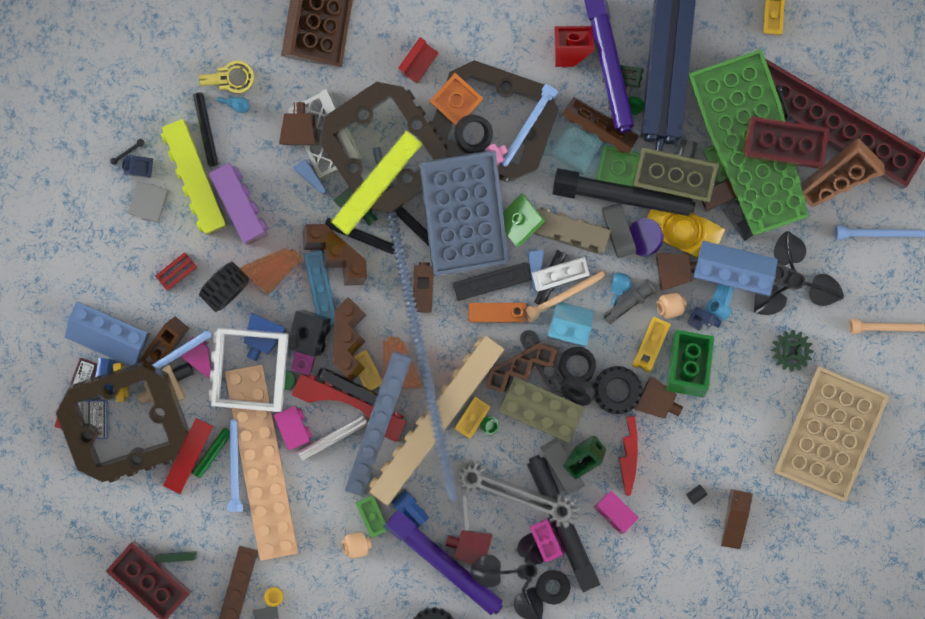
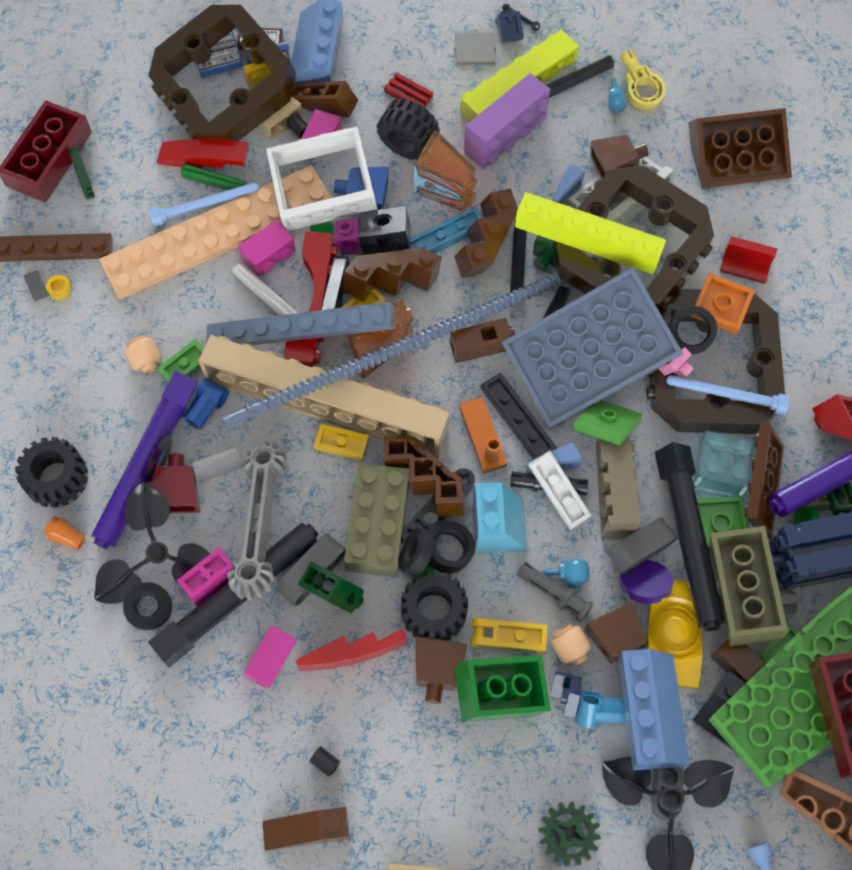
camera: 70 degrees right, 20 degrees down
(181, 350) = (322, 108): light blue piece -> none
(489, 425) = (338, 465): green plate -> none
(533, 313) = (498, 470): light nougat piece -> none

